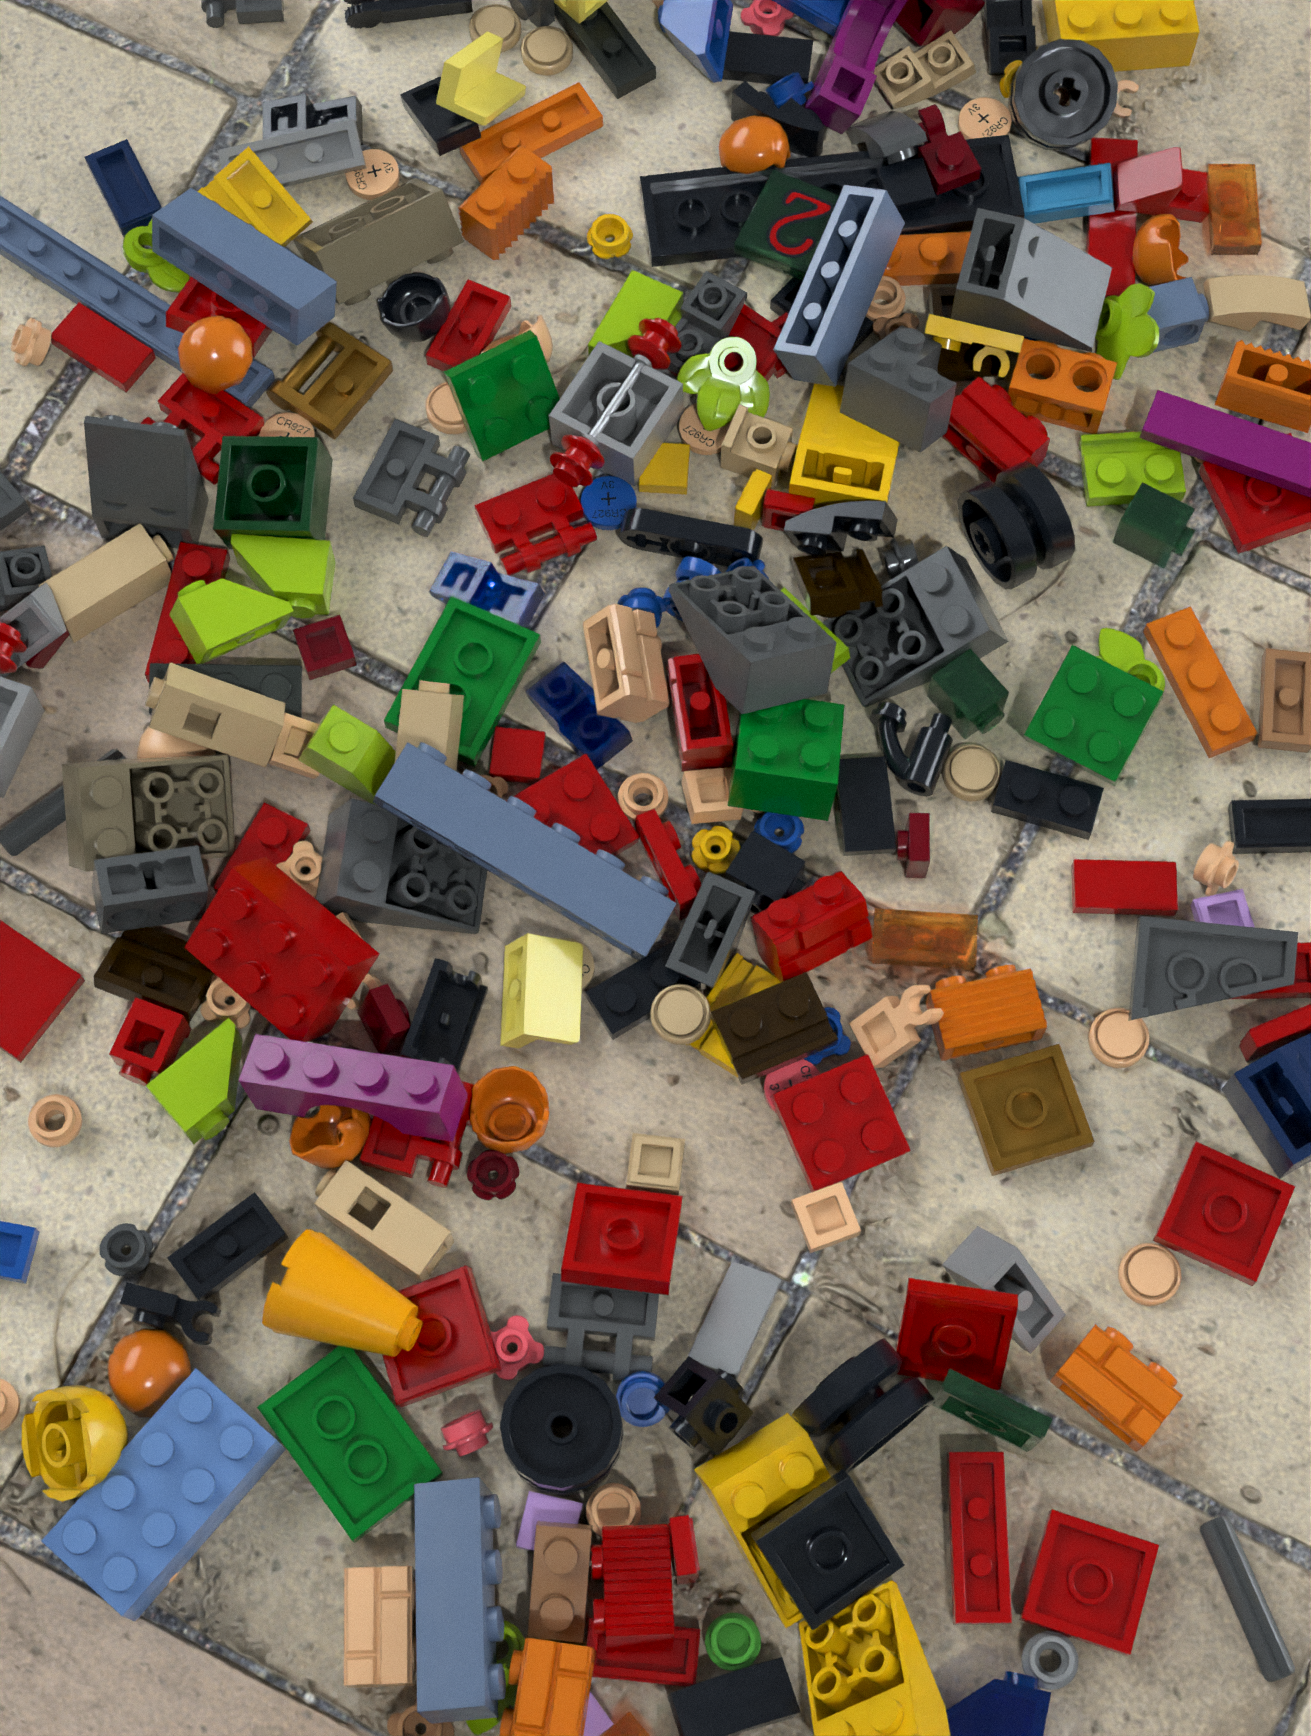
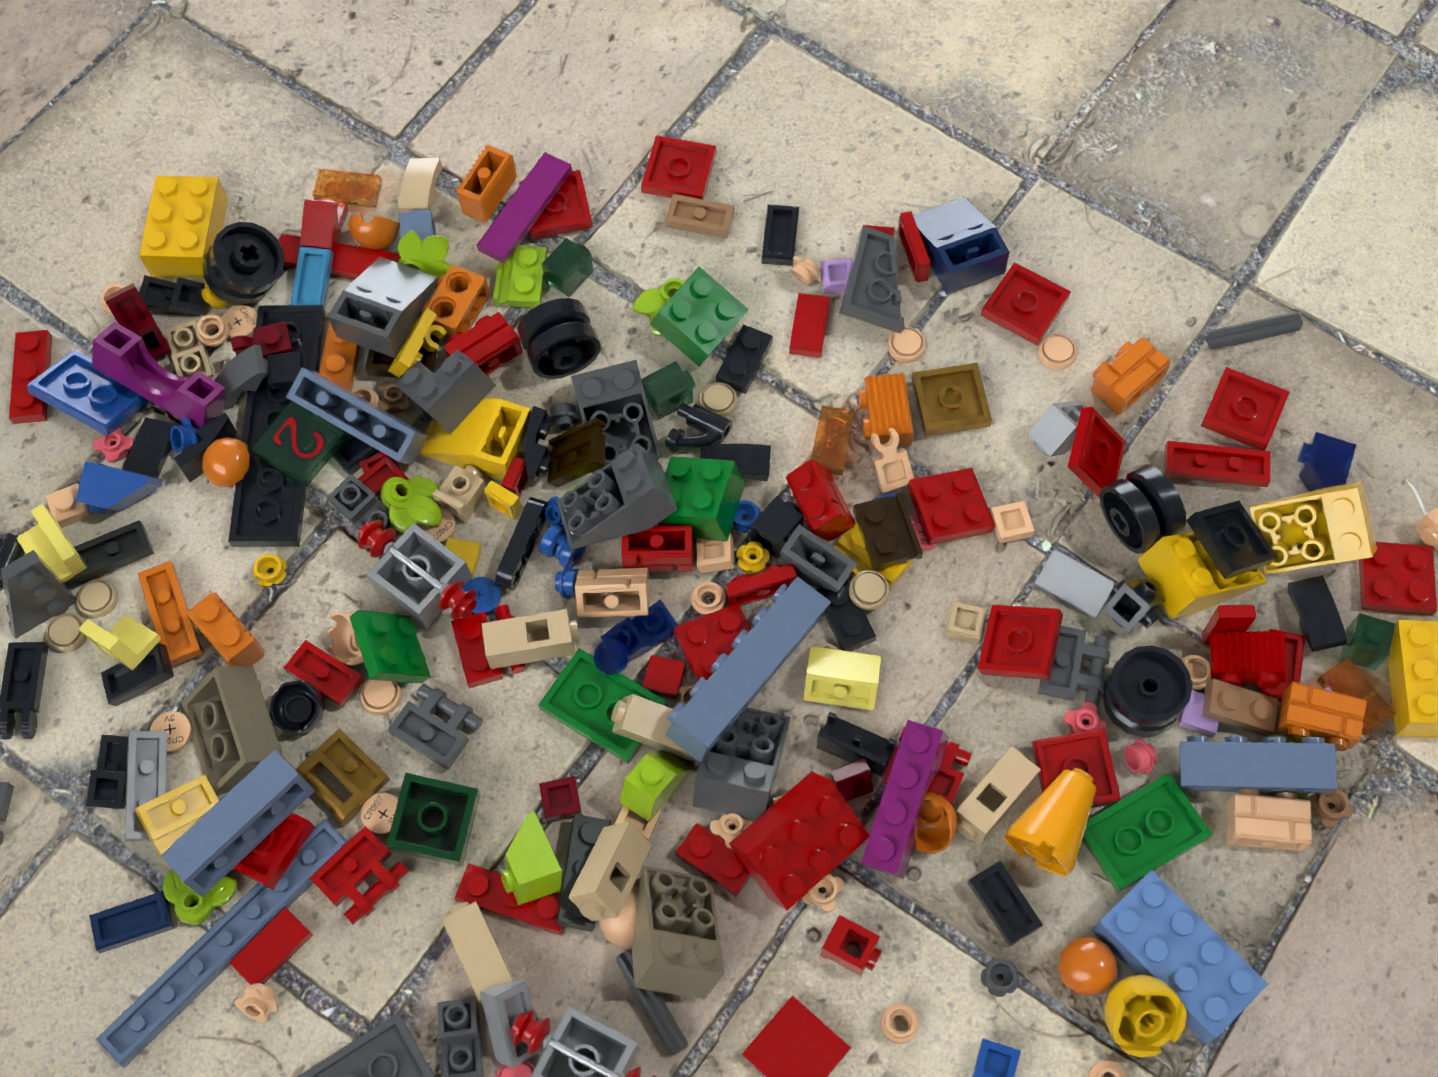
camera: 80 degrees left, 5 degrees down
(144, 478) = (412, 908): dark grey slope -> none
(149, 889) = (739, 932): dark grey brick -> none
(154, 969) = (795, 940): dark brown plate -> none
(156, 1307) = (1046, 956): black plate -> none
(202, 1084) = (886, 910): lime slope -> none
(215, 354) = (310, 849): orange hair -> none
(289, 570) = (496, 818): lime slope -> none
(482, 586) = (531, 687): clear blue slope -> none
(493, 1161) = (967, 714): dark red plate -> none
(509, 1109) = (927, 701): orange hair -> none
(526, 673) = (611, 657): none -> clear blue plate
(535, 562) = (529, 638): none -> tan brick
(637, 300) = (339, 555): lime slope -> none
(637, 1399) = (1122, 641): blue plate -> none
(732, 1641) = (1277, 611): bright green plate -> none
(914, 845) = (769, 433): dark red plate -> none
(960, 77) = (209, 322): none -> light nougat plate
(991, 1411) = (1148, 436): clear green tile -> none
(1066, 1654) = (1293, 430): light grey plate -> none
(1200, 682) = (677, 262): orange plate -> none

